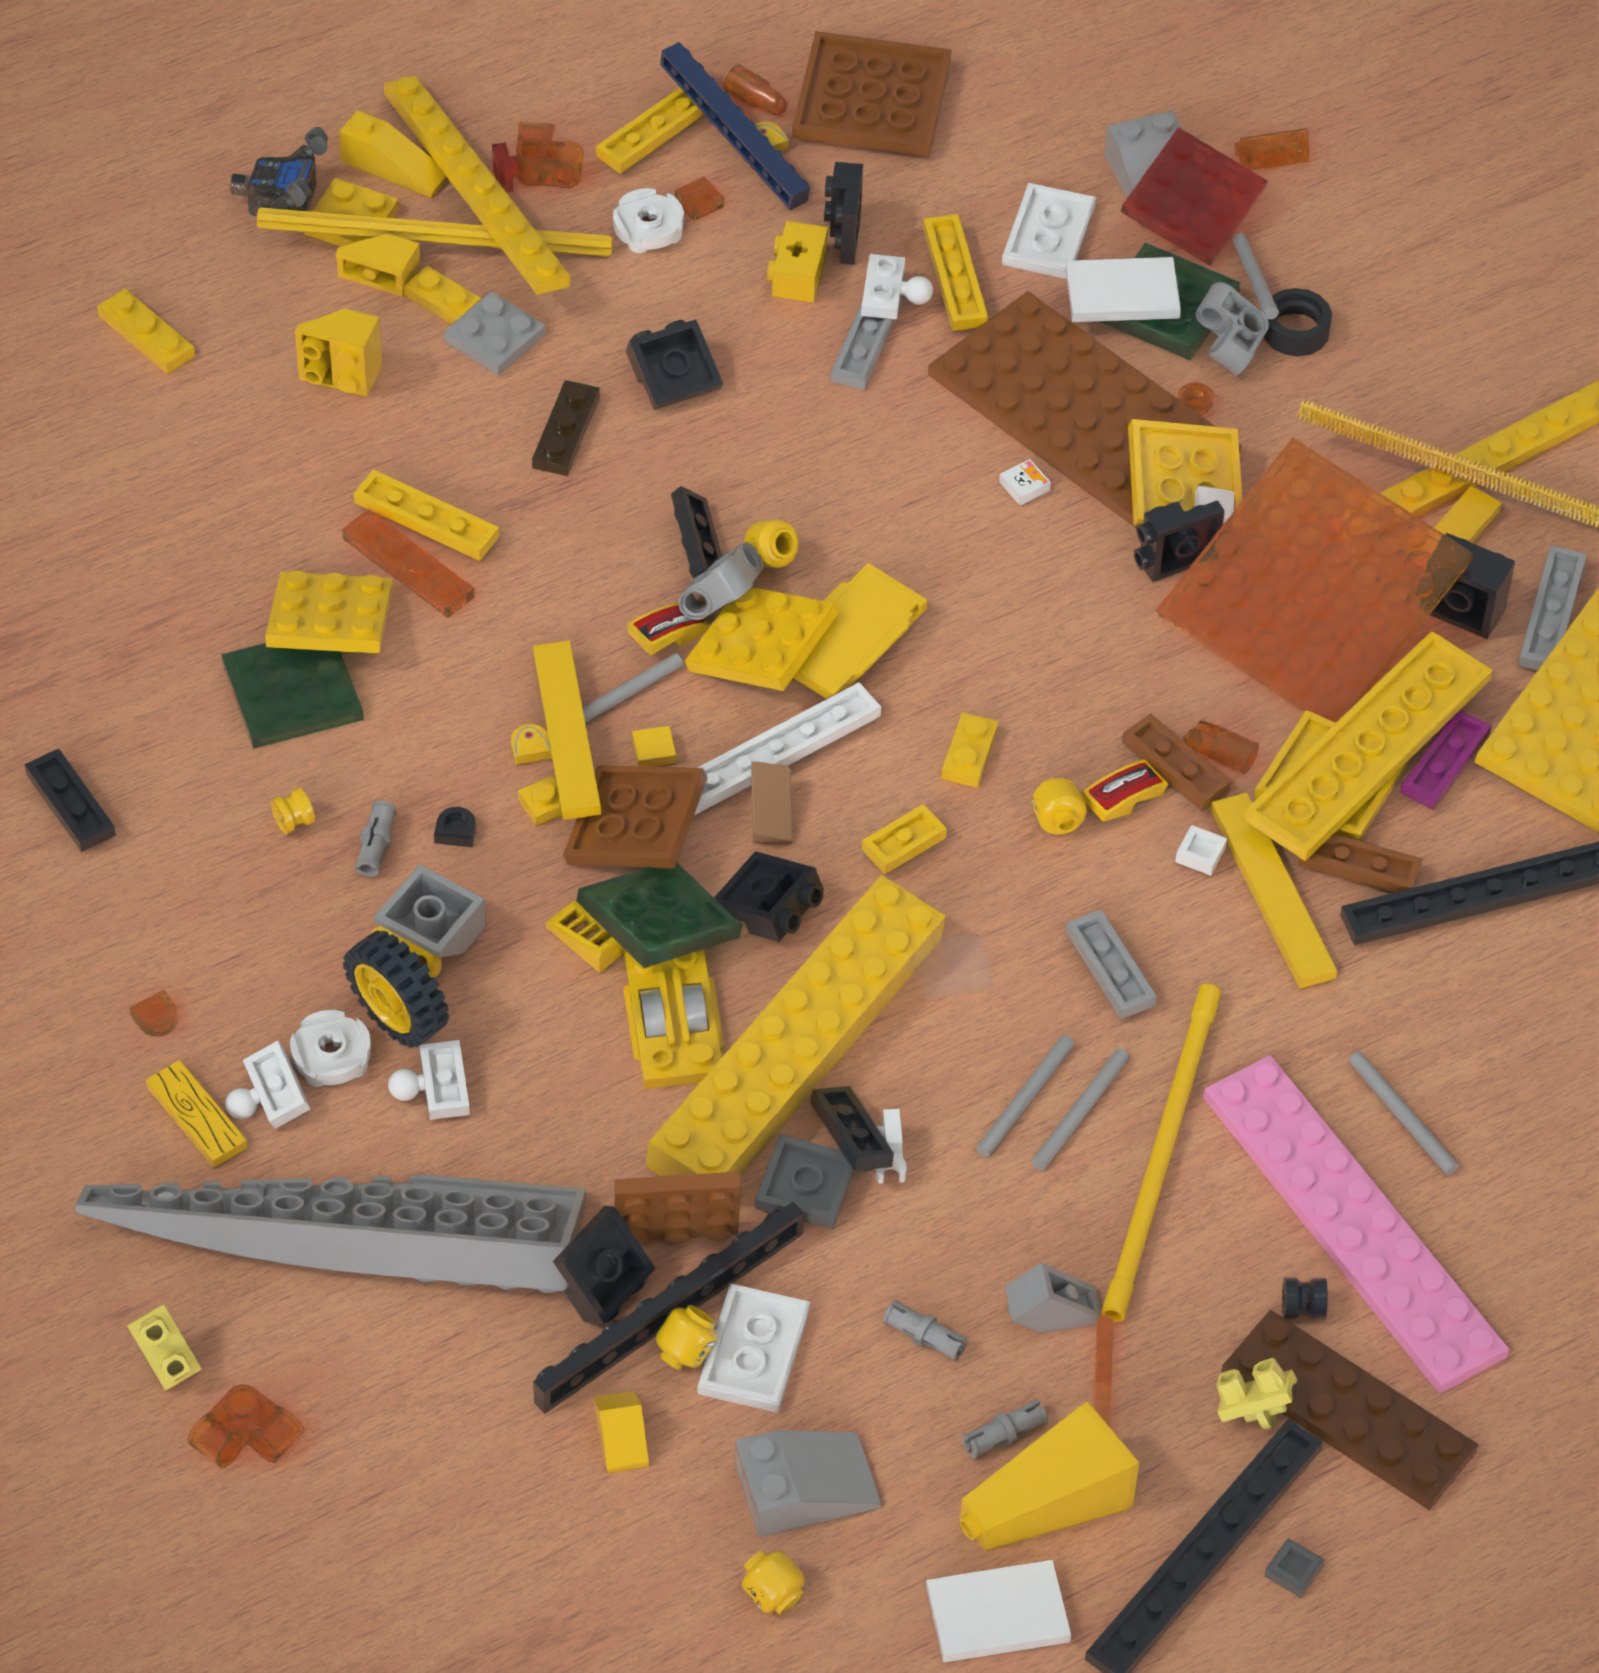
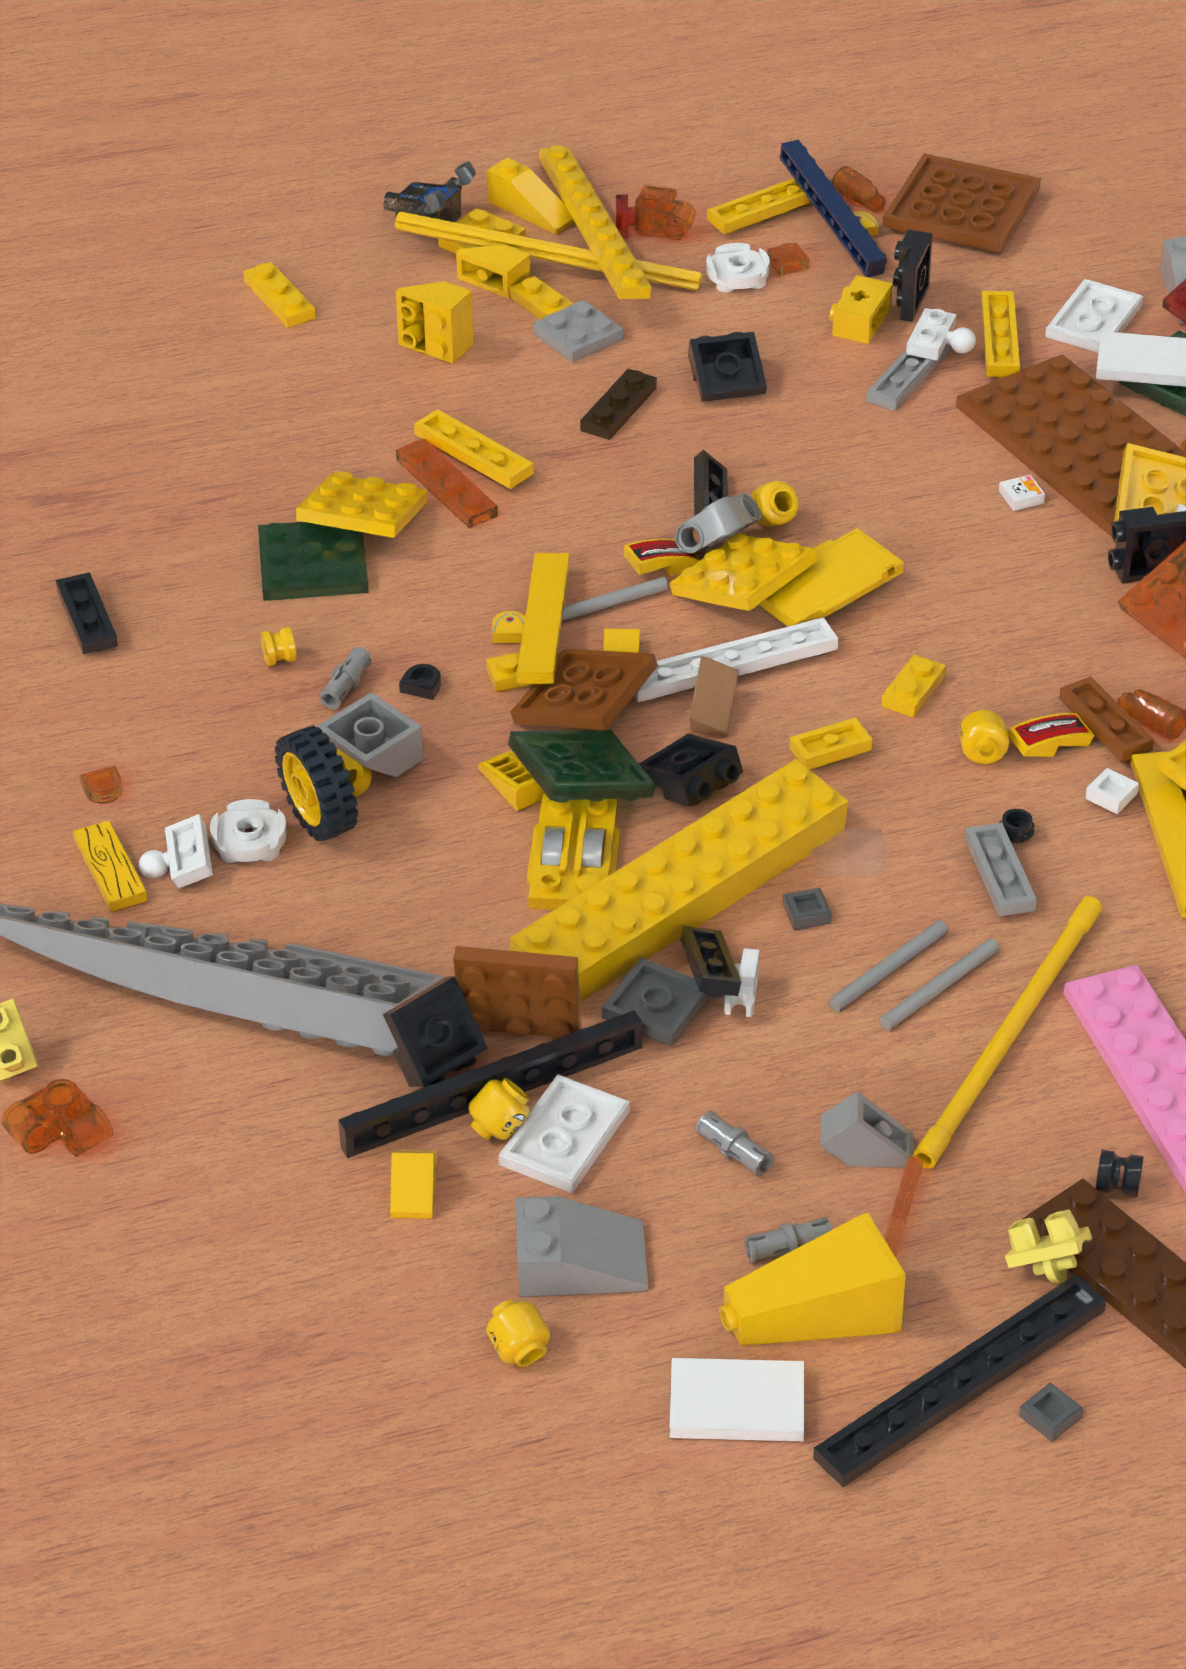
camera: 15 degrees right, 10 degrees down
(441, 1079) = (339, 873): white plate -> none
(927, 1042) = (807, 908): none -> dark grey tile
(1117, 901) = (1018, 825): none -> black plate

